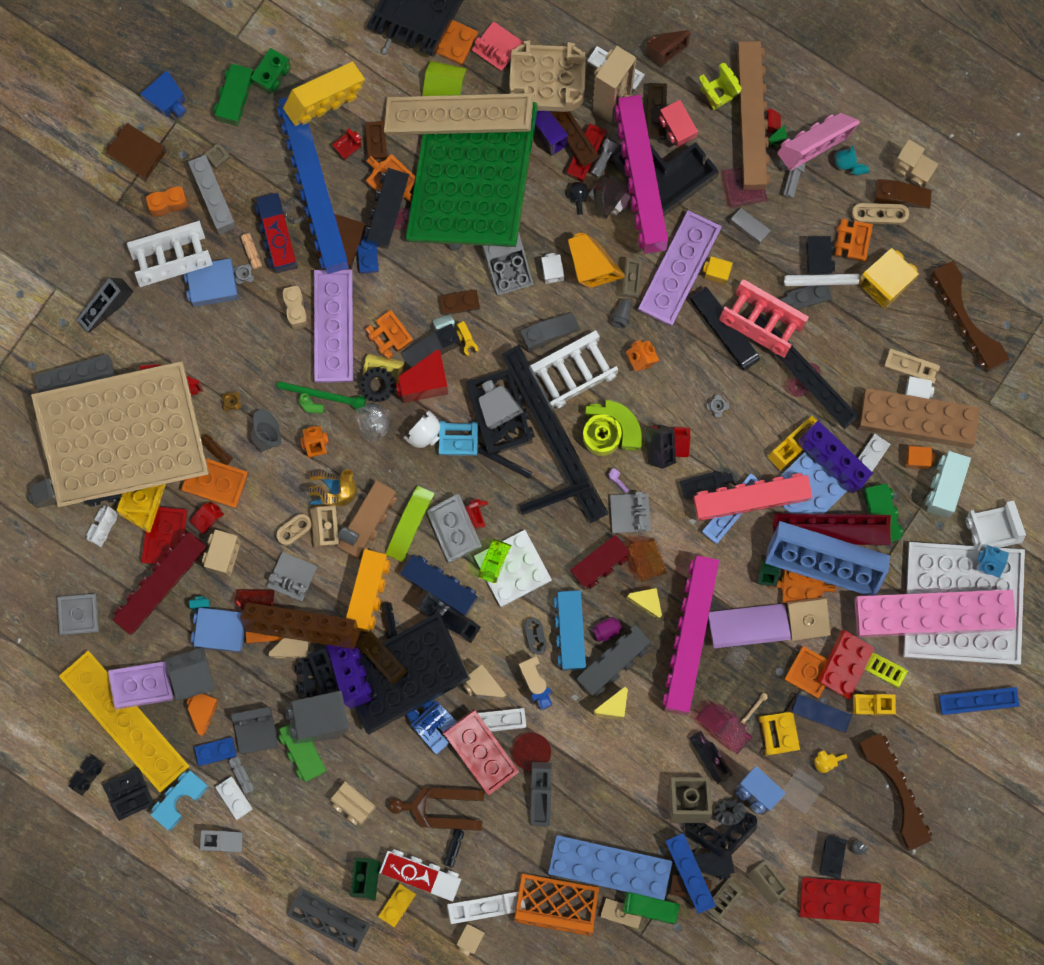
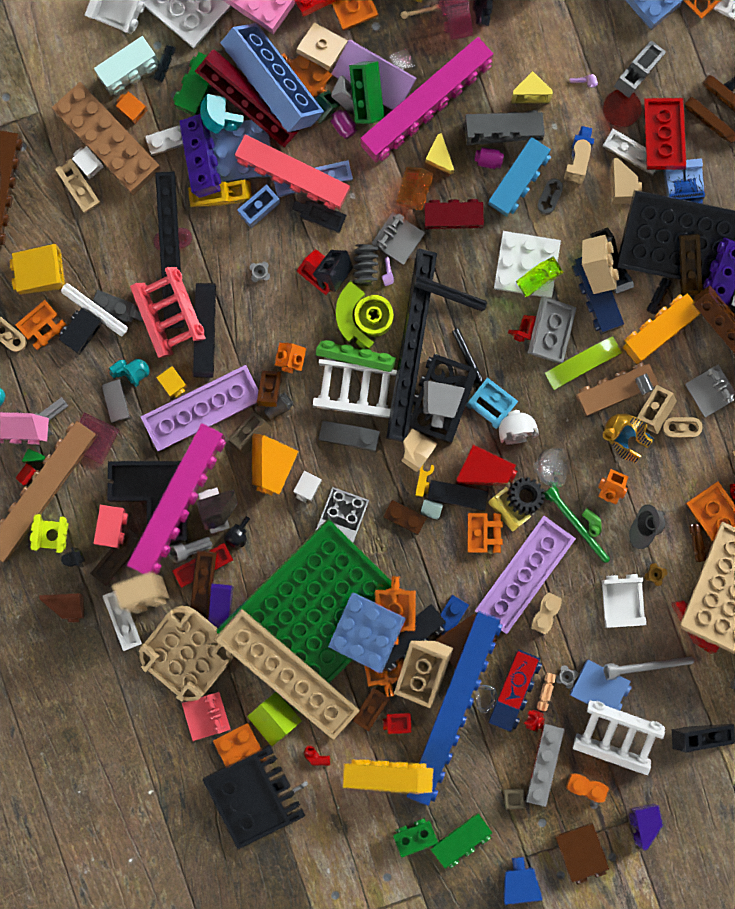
camera: 140 degrees left, 5 degrees up
(102, 206) = (647, 824): none -> dark purple slope
(210, 298) = (613, 671): none -> light grey piece
(241, 361) = (623, 601): none -> white panel
(243, 221) = (535, 720): none -> red plate
(356, 192) = (423, 671): none -> tan slope
(390, 75) = (314, 758): none -> red arm
(412, 218) = (400, 602): none -> orange plate
(421, 186) = (366, 632): none -> medium blue plate
(456, 599) = (598, 264): none -> tan brick
(488, 357) = (417, 449): none -> tan slope
(573, 755) = (590, 79): none -> lavender hand
(591, 393) = (356, 356): none -> bright green plate
(639, 319) = (269, 388): none -> reddish brown plate
(639, 471) = (365, 264): none -> dark grey piece
(686, 83) = (73, 558): none -> black hinge
(743, 570) = (343, 124): none -> magenta brick
(743, 604) = (366, 92): none -> green brick
(753, 257) = (134, 371): none -> teal piece
(756, 593) = (343, 94): none -> light grey slope
(758, 453) = (258, 206): none -> medium blue brick
(848, 494) = (215, 117): none -> brick
(921, 513) = (164, 63): none -> black axle

